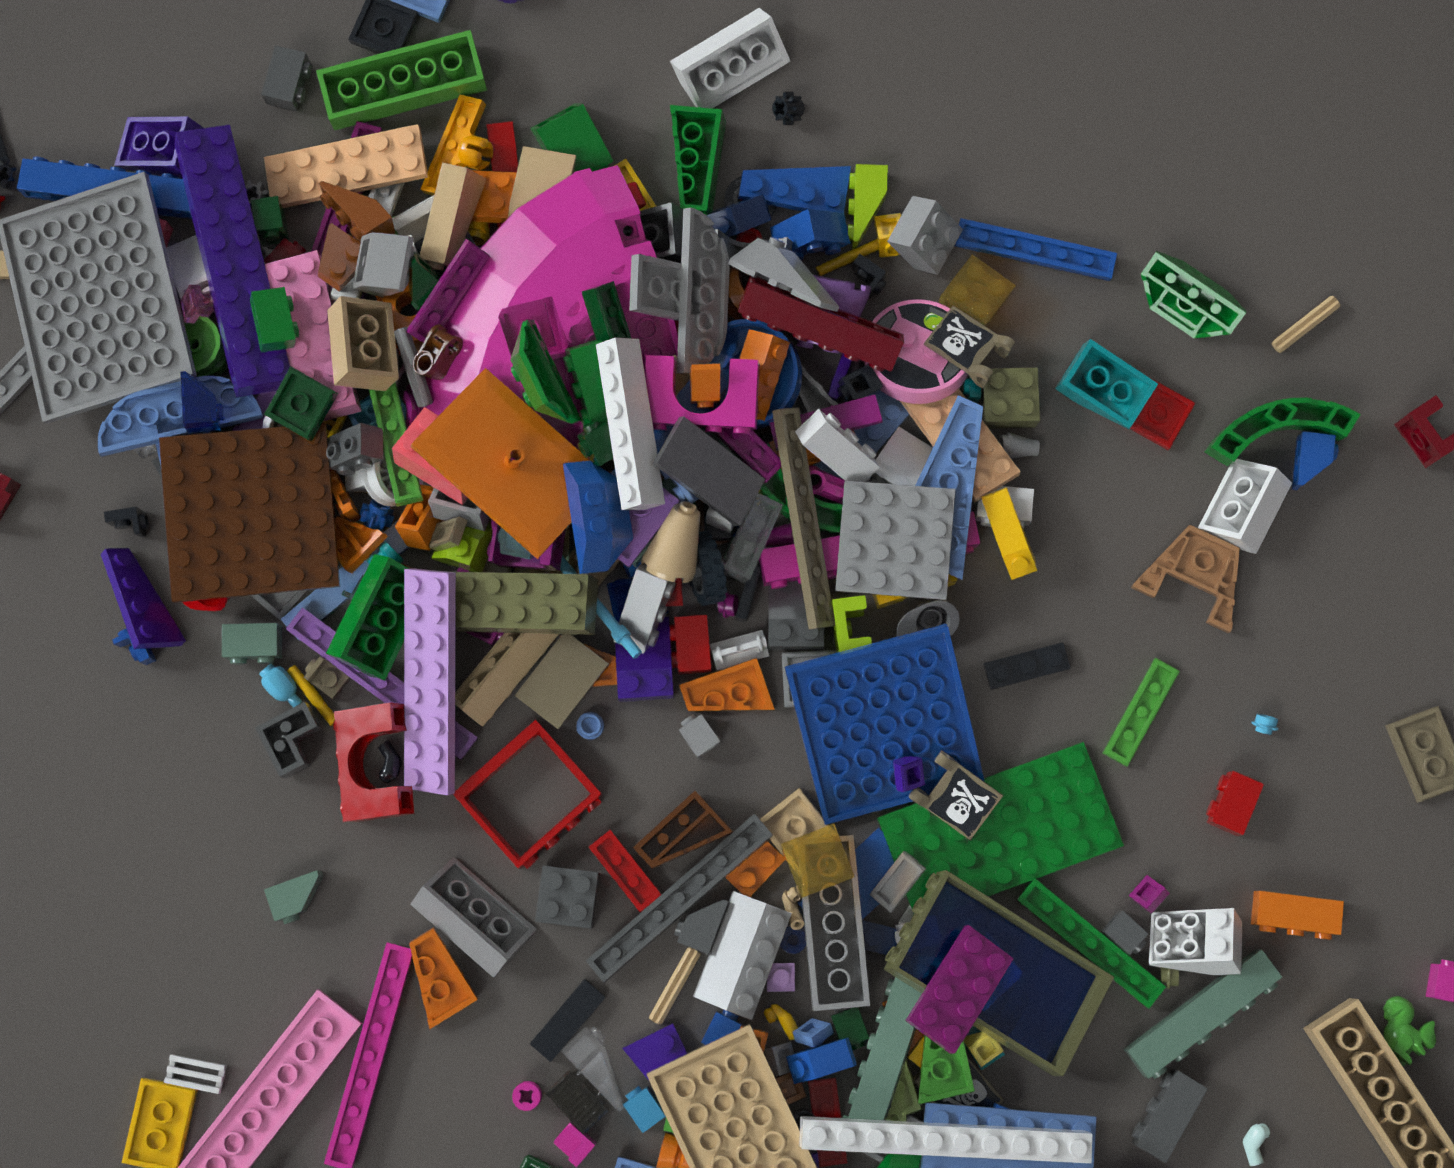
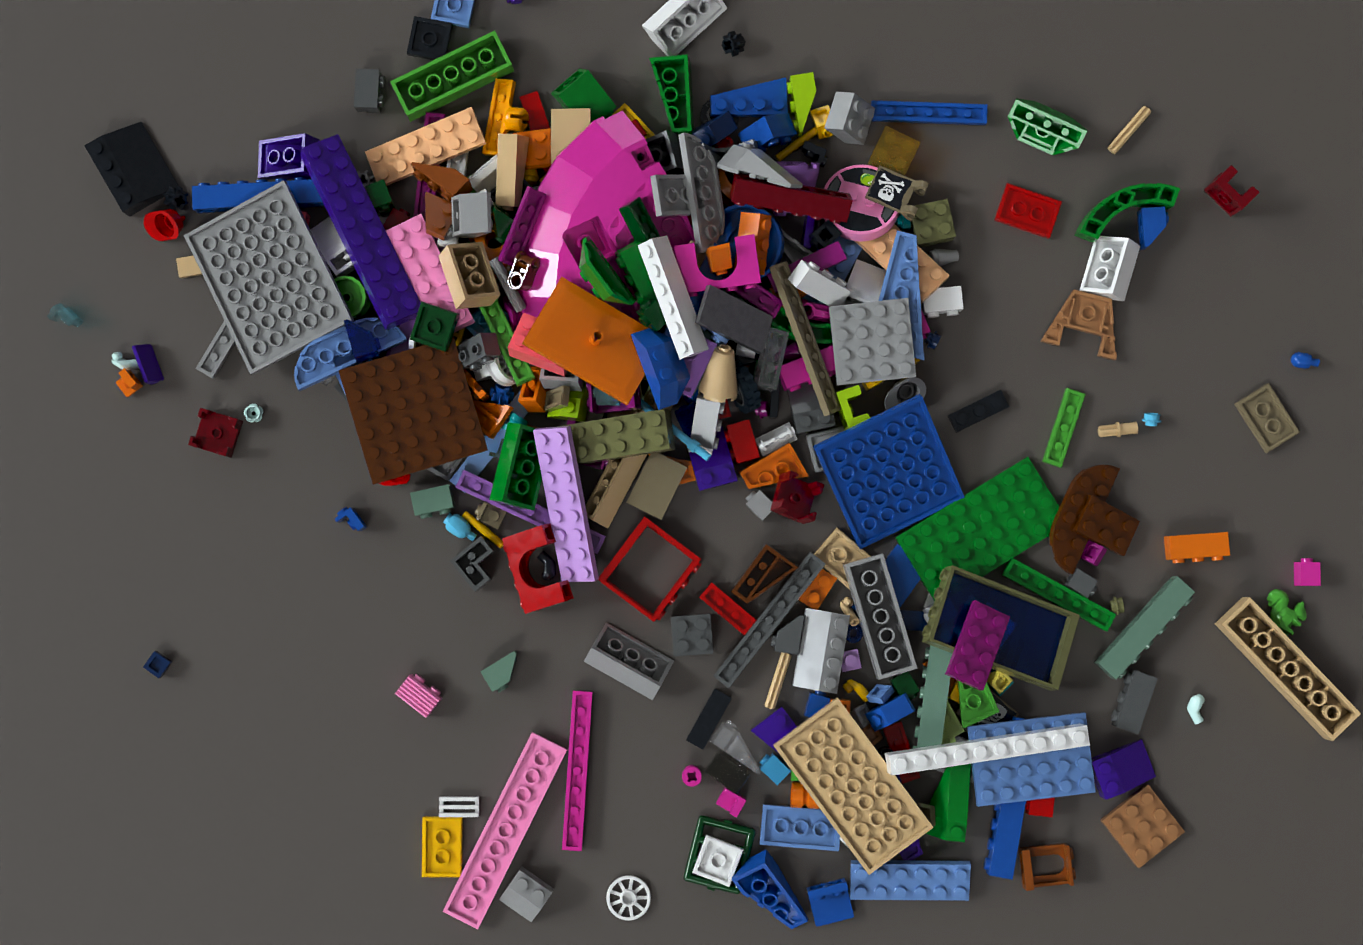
camera: 15 degrees left, 5 degrees up
(30, 473) = (253, 408): none -> light aqua plate
(124, 517) = (322, 431): black bracket -> none
(139, 603) = (347, 488): dark purple wing -> none
(174, 906) = (419, 695): none -> bright pink brick
(194, 304) = (341, 270): clear pink tile -> none
(273, 319) = (402, 270): green brick -> none
(440, 978) = (615, 708): orange wing -> none
(590, 725) = (682, 512): medium blue plate -> none
(749, 735) = (795, 498): none -> dark red panel
(817, 860) = (862, 576): clear yellow brick -> none
(898, 881) = (918, 579): light grey tile -> none
(908, 773) = (912, 503): dark purple brick -> none
(958, 797) = (950, 512): flag -> none
(982, 557) = (932, 340): none -> dark blue plate
(1009, 533) = (950, 321): yellow slope -> none
(1106, 384) = (997, 201): teal slope -> none
(1150, 841) = (1088, 516): none -> reddish brown plate
(1197, 941) = (1131, 579): white slope -> none
(1215, 729) = (1118, 429): none -> tan axle
(1234, 803) = (1140, 478): red brick -> none

